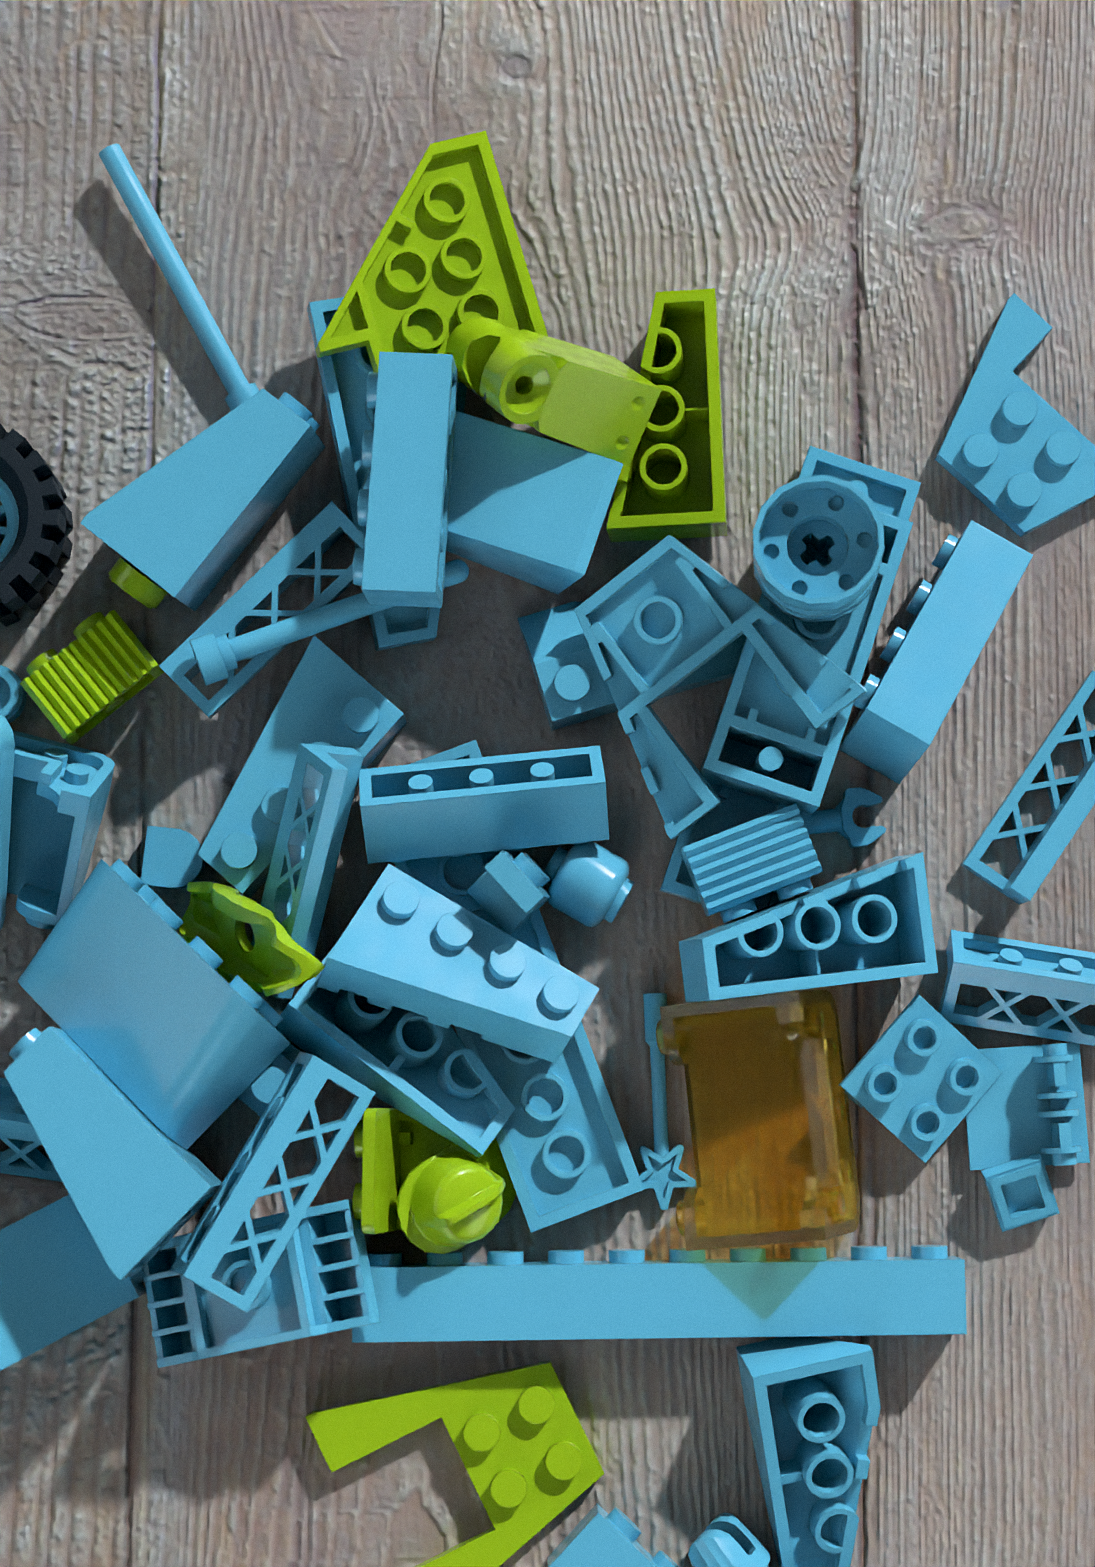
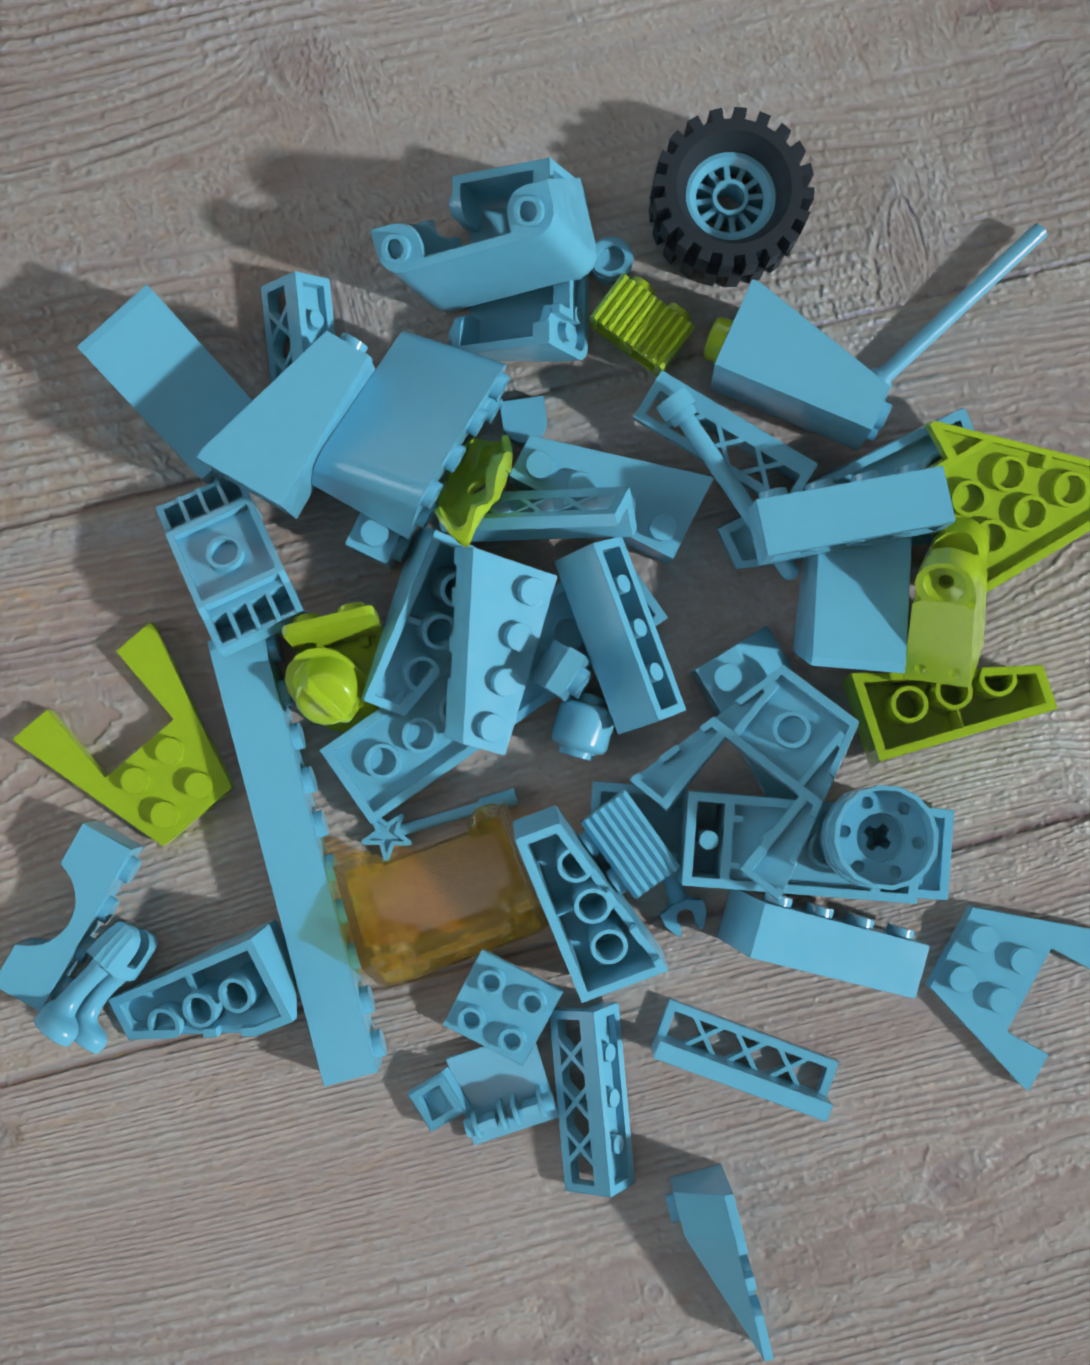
camera: 75 degrees right, 5 degrees up
(254, 1167) = (307, 535): medium azure fence -> none

